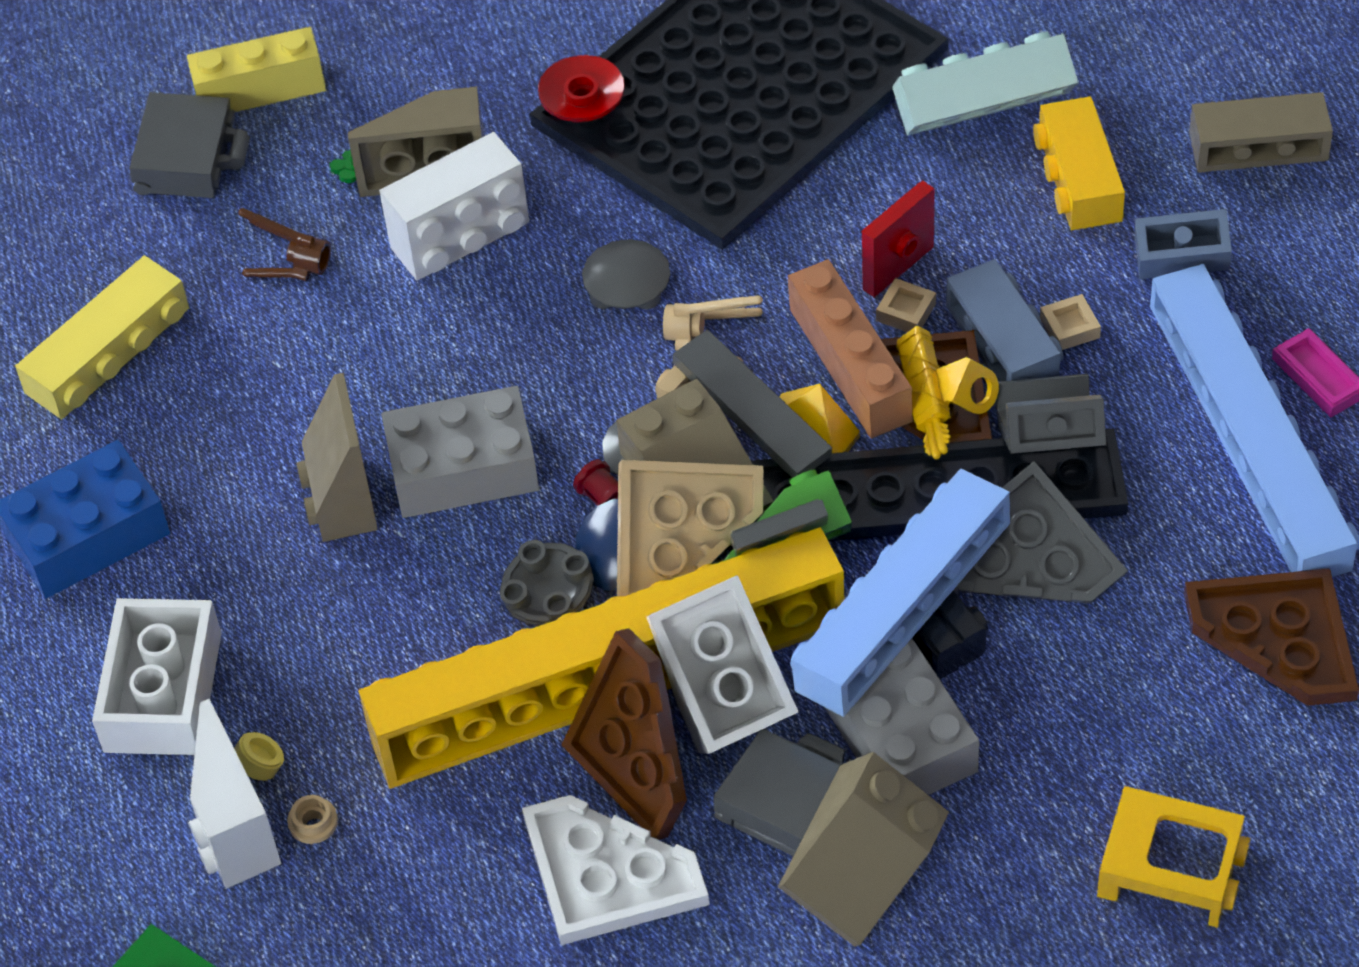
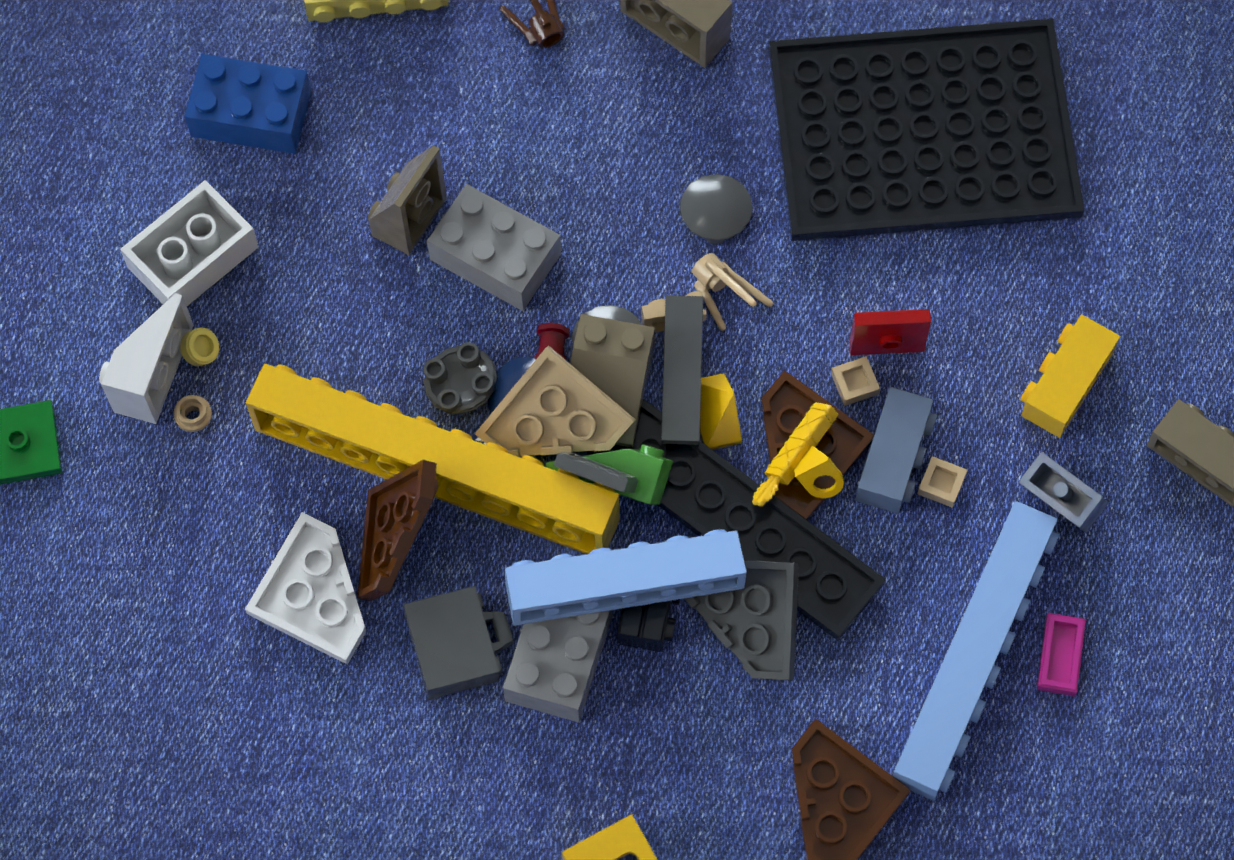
camera: 40 degrees right, 15 degrees up
(455, 206) = (651, 73): white brick -> none
(581, 88) = (813, 40): red dish -> none
(720, 666) = (478, 530): white slope -> none
(850, 348) = (776, 383): nougat brick -> none
(862, 846) = (448, 712): dark tan slope -> none
(984, 83) = (1068, 266): light aqua brick -> none
(1050, 414) = (835, 551): dark grey window -> none

